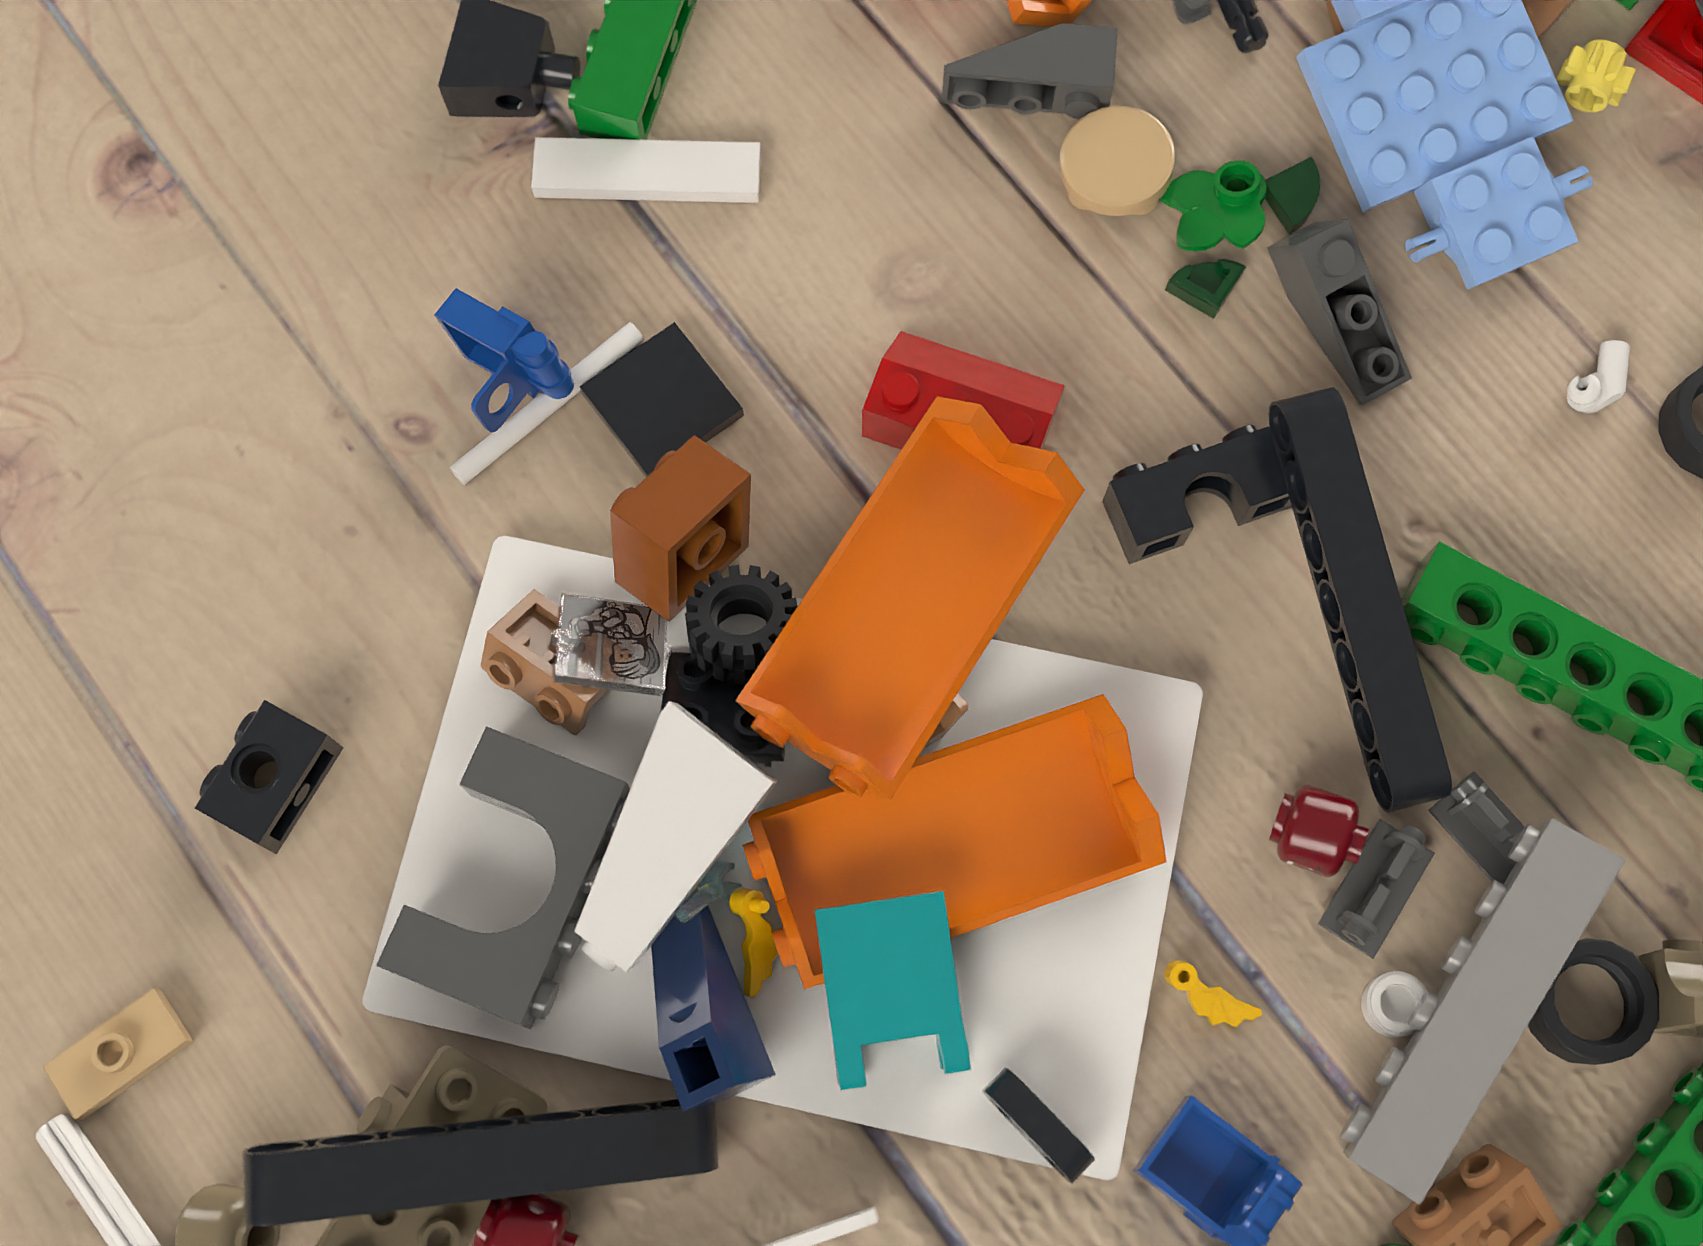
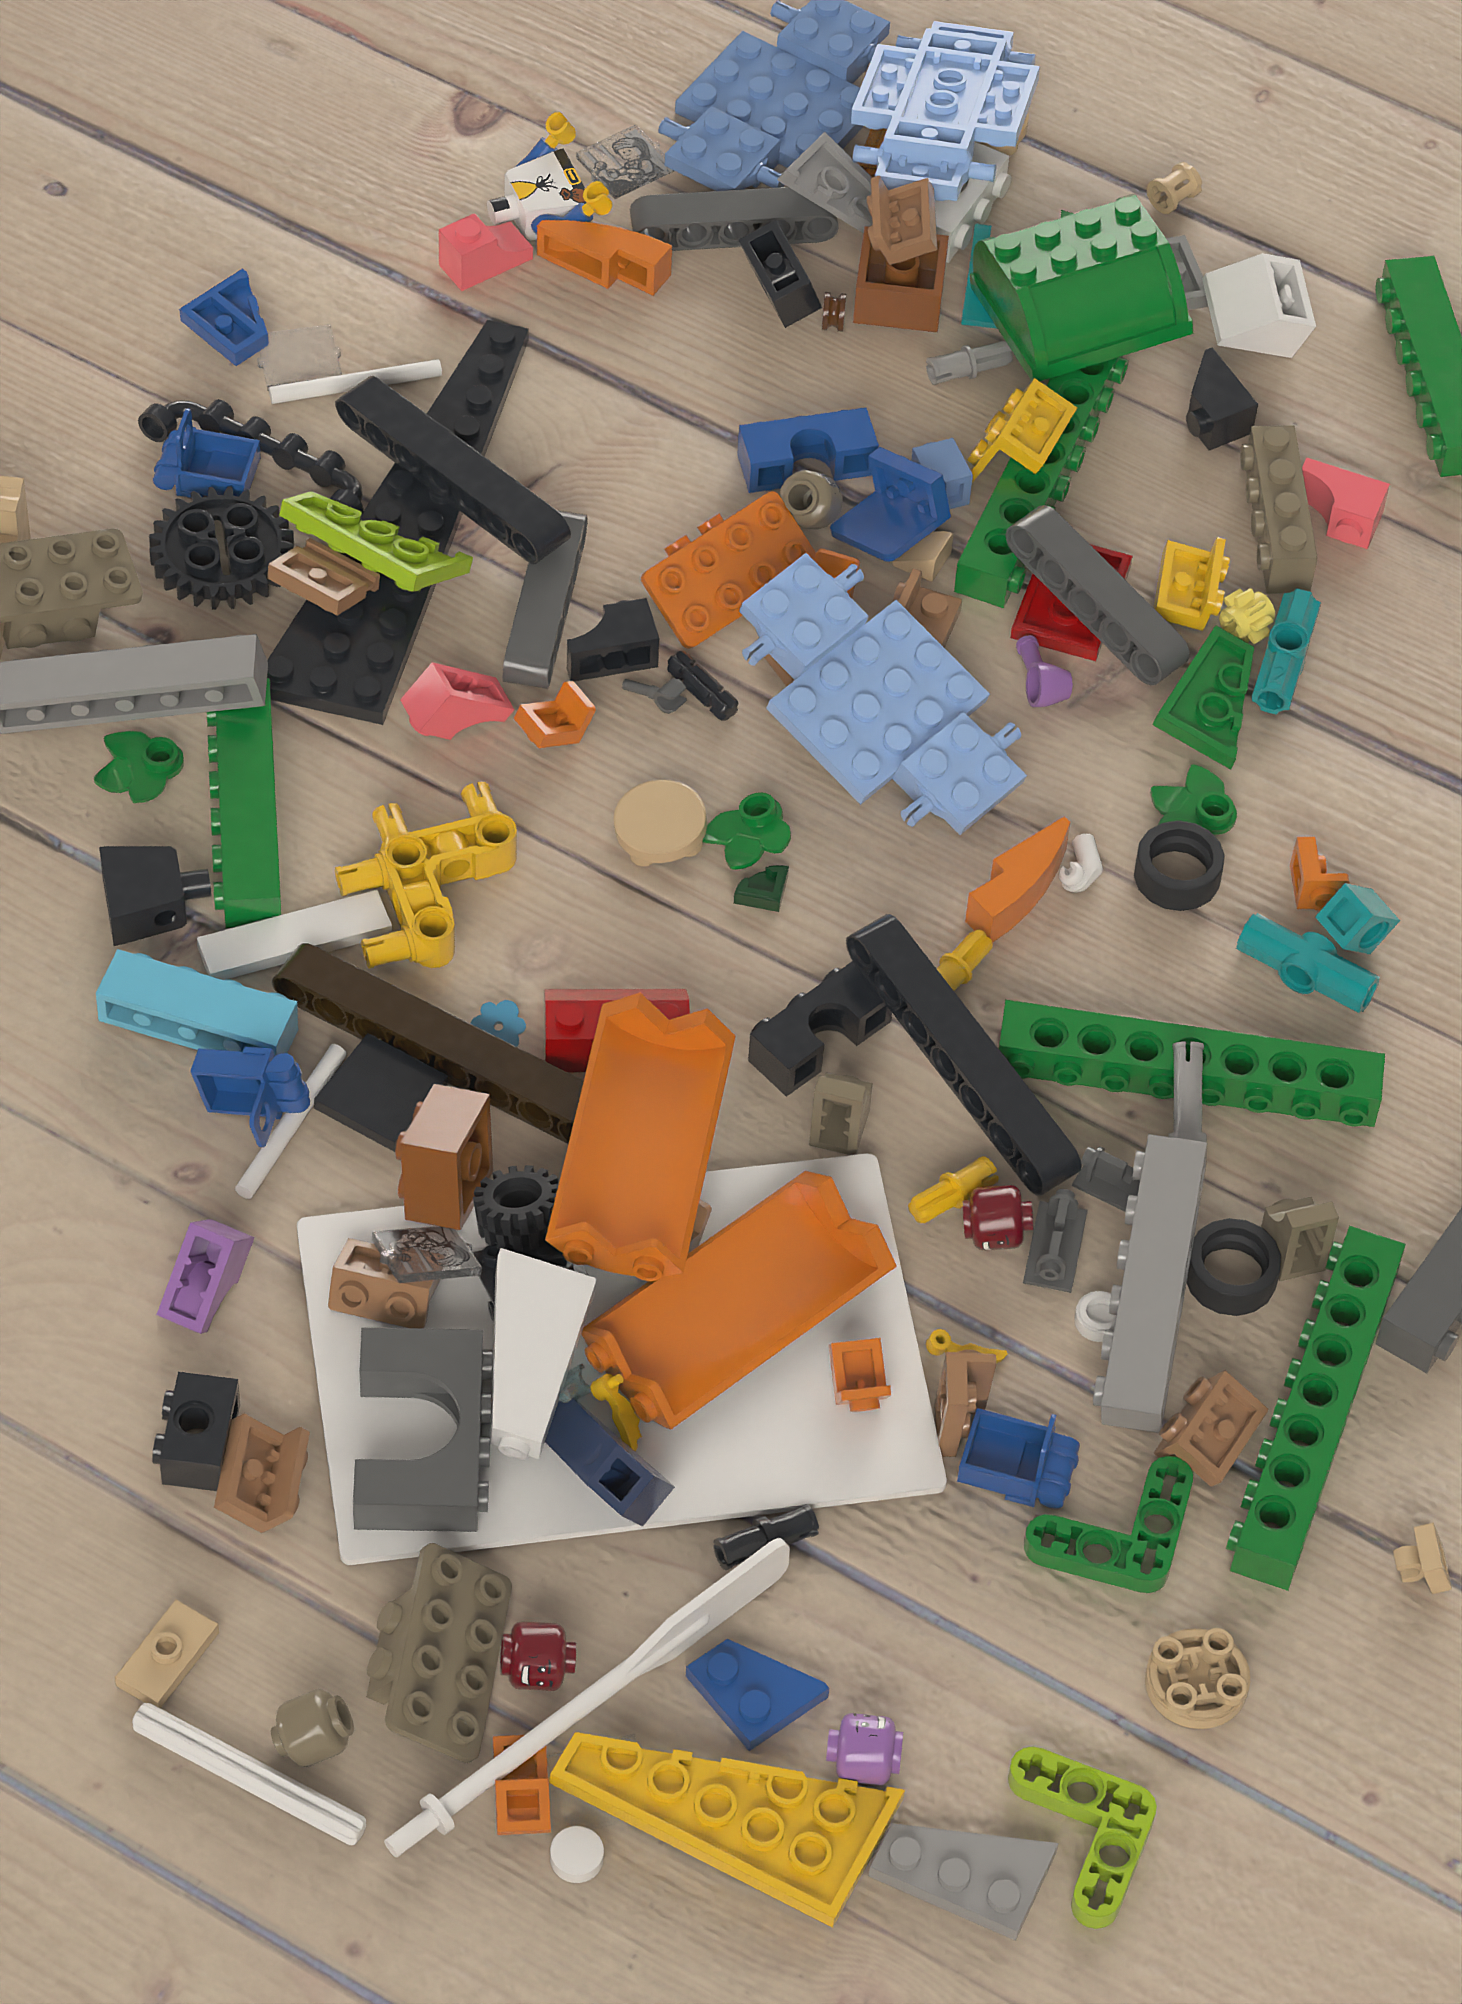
camera: 25 degrees left, 20 degrees down
(312, 860) = (261, 1473): none -> medium nougat bracket
(359, 569) = (204, 1273): none -> medium lavender arch
(475, 1161) = (489, 1597): black beam -> none
(491, 231) = (193, 1007): none -> medium azure brick
(741, 354) = (468, 1055): none -> dark brown beam
(811, 359) = (505, 1014): none -> dark azure plant
(845, 125) = (417, 865): none -> yellow pin
(868, 1167) = (741, 1545): none -> black pin
(890, 980) = (732, 1400): teal flag -> none
(1038, 1125) = (876, 1459): black beam -> none
(1049, 71) = (581, 774): dark grey slope -> none
(1062, 1000) = (859, 1374): none -> orange bracket
(1163, 1084) = (961, 1390): none -> medium nougat bracket
(1181, 617) = (839, 1113): none -> dark tan arch
(1280, 768) = (952, 1190): none -> yellow axle
(1294, 194) = (803, 806): dark green tile -> none
(1341, 306) = (869, 871): dark grey slope -> none
(1400, 464) = (959, 964): none -> yellow axle
(1513, 378) = (1018, 881): none -> orange slope
(1595, 75) = (994, 659): light yellow gear -> none
(1616, 765) = (1188, 1092): none -> light grey pin
(1645, 122) = (1044, 682): none -> medium lavender bar

